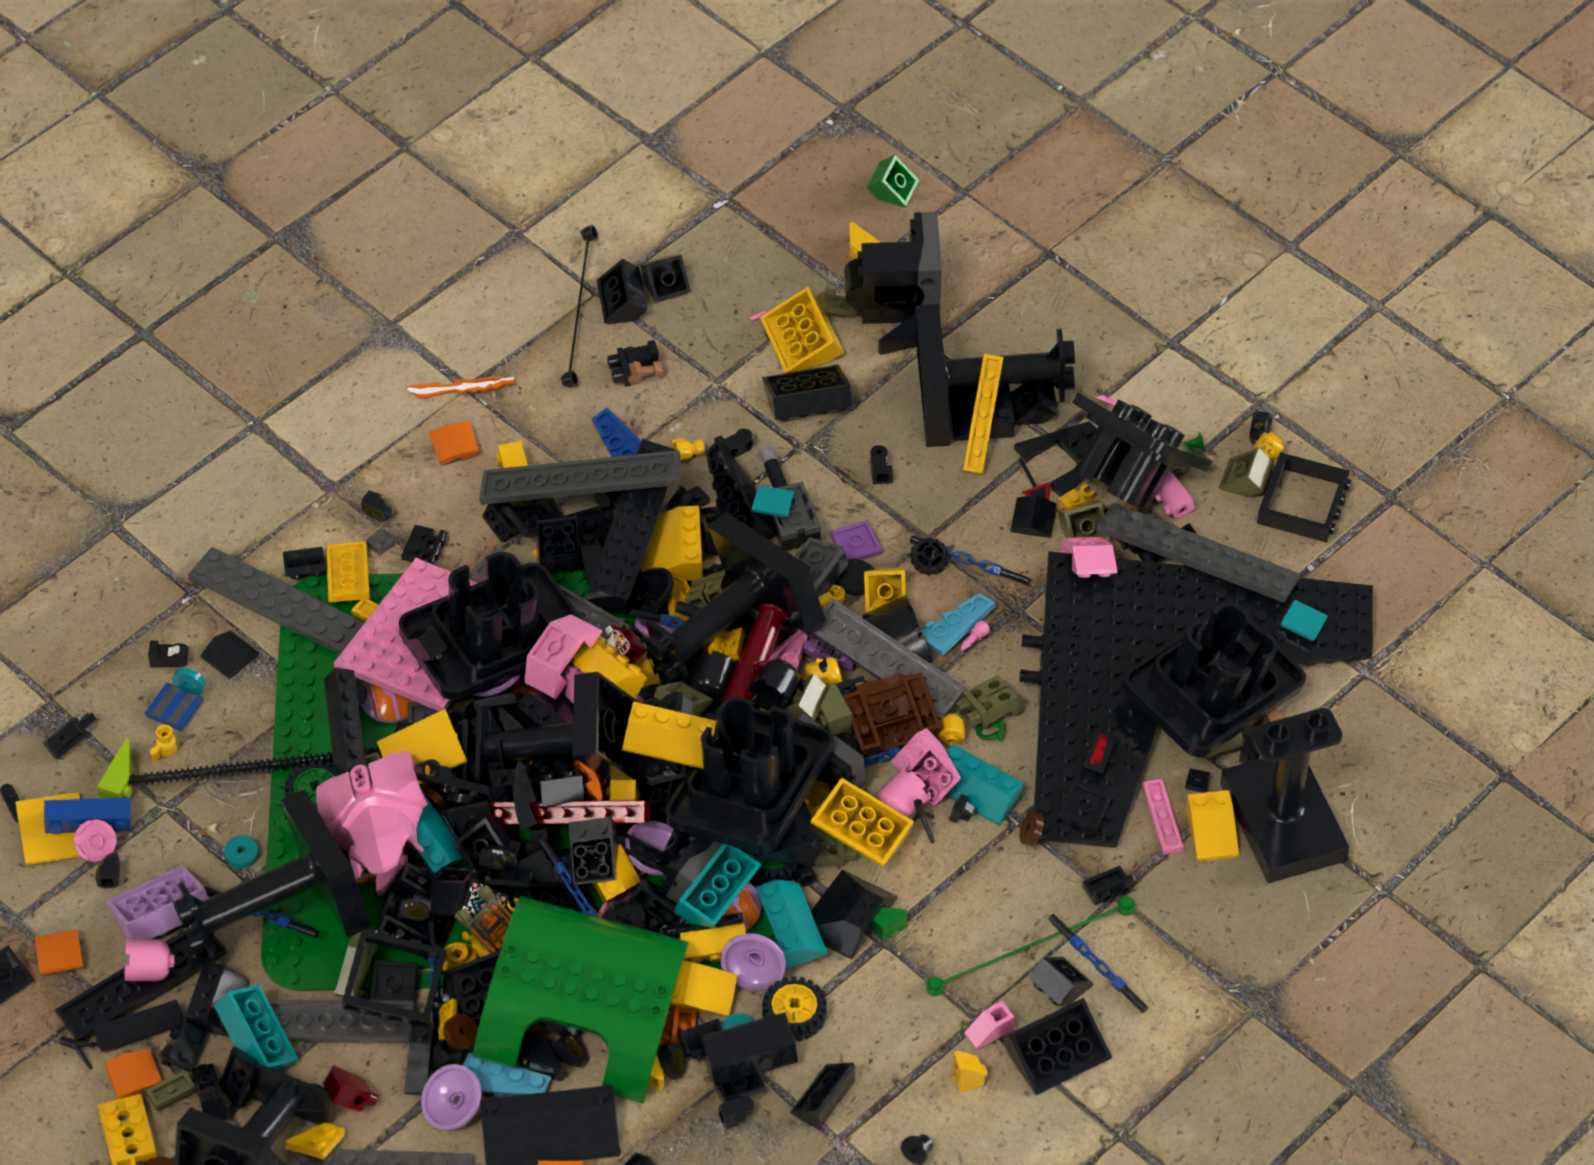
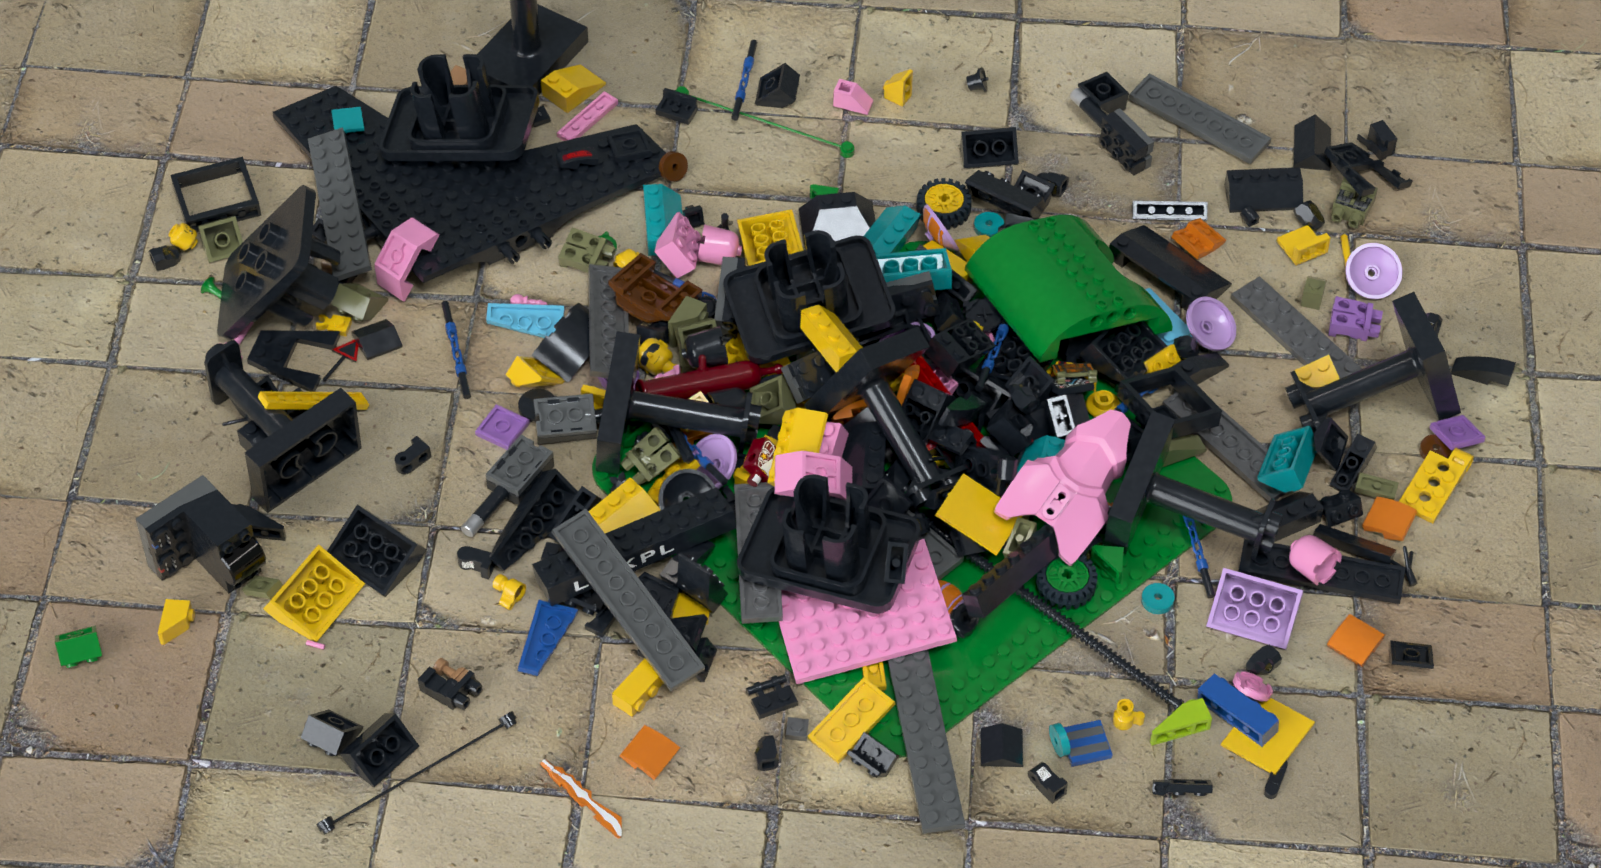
camera: 130 degrees left, 0 degrees up
(348, 1089) = (1271, 377): dark red torso -> none
(454, 1037) = (1165, 341): reddish brown piece -> none
(772, 501) = (527, 472): teal piece -> none
(929, 556) = (477, 369): black piece -> none
(1057, 1046) = (828, 62): black slope -> none

